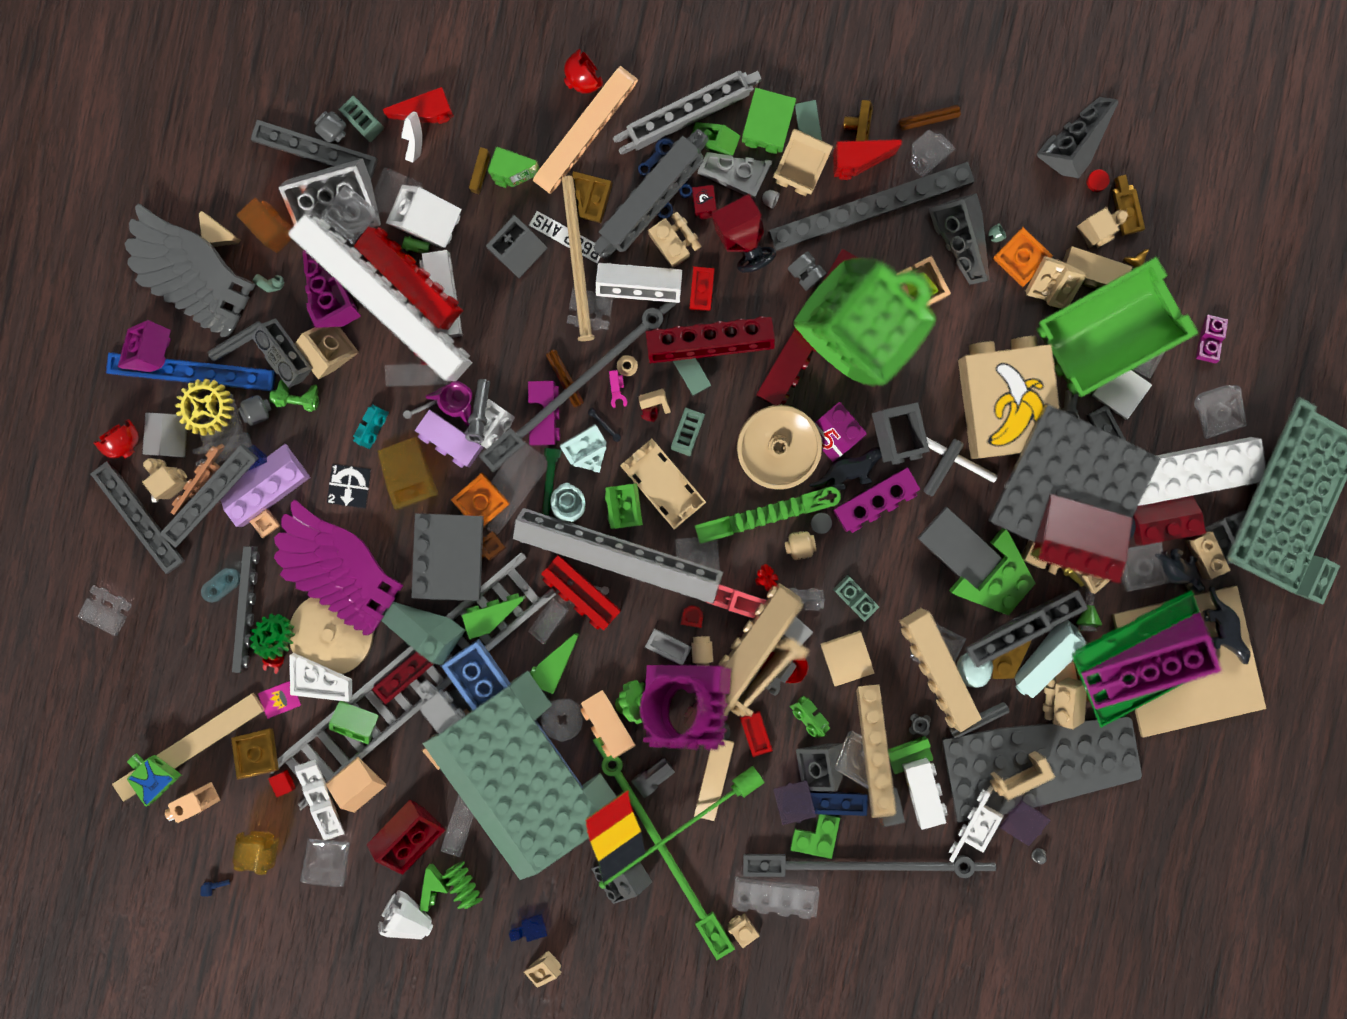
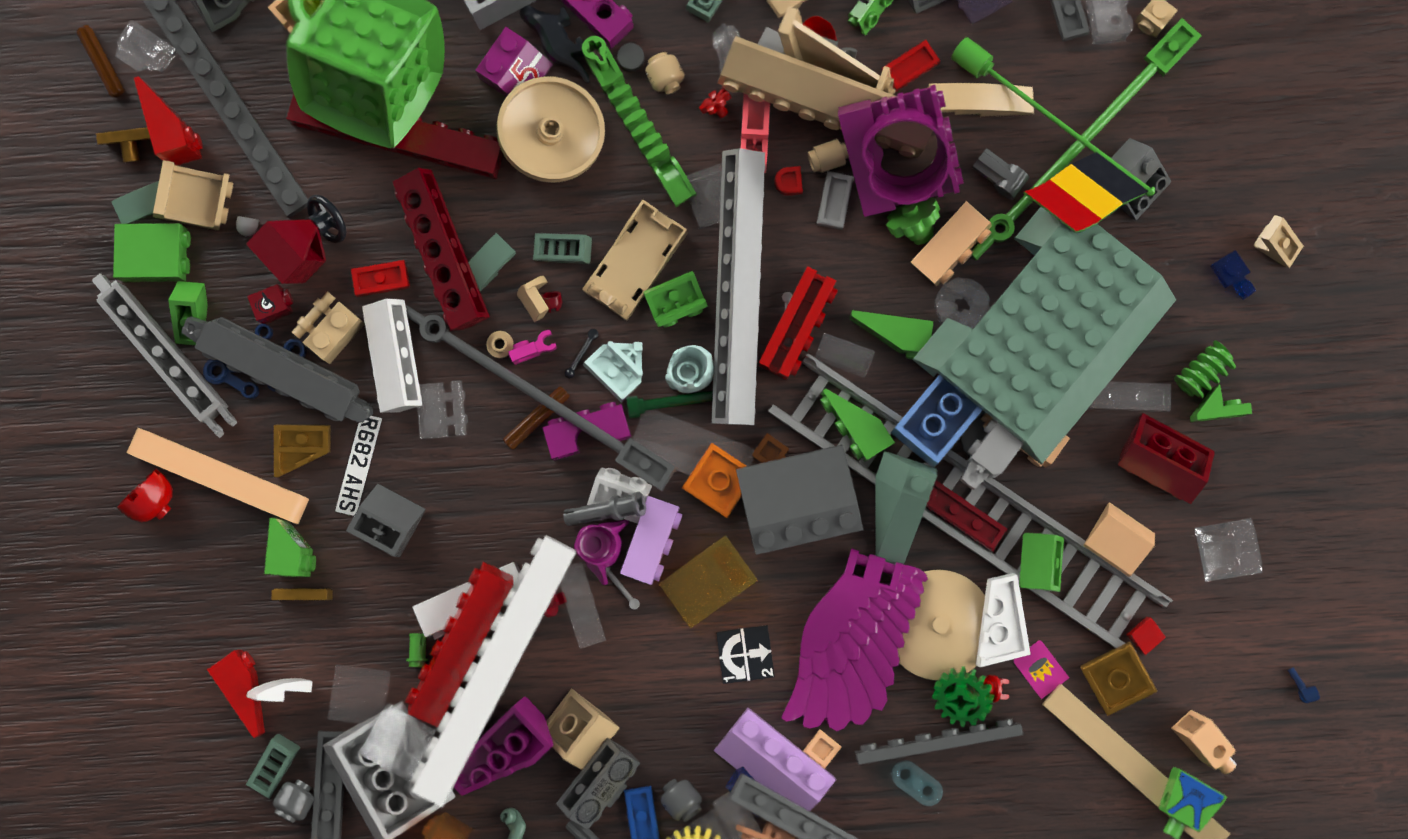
camera: 100 degrees left, 5 degrees down
(255, 852) = (1242, 641): clear yellow brick -> none
(281, 397) = (654, 770): bright green piece -> none
(319, 800) = (1151, 577): white slope -> none
(375, 419) = (674, 647): teal hinge -> none
(404, 918) = (1268, 431): white cone -> none
(424, 215) = (376, 649): white slope -> none
(577, 259) = (382, 441): tan axle -> none
(735, 173) = (226, 273): light grey wing -> none
(801, 266) = (321, 164): dark grey wheel -> none

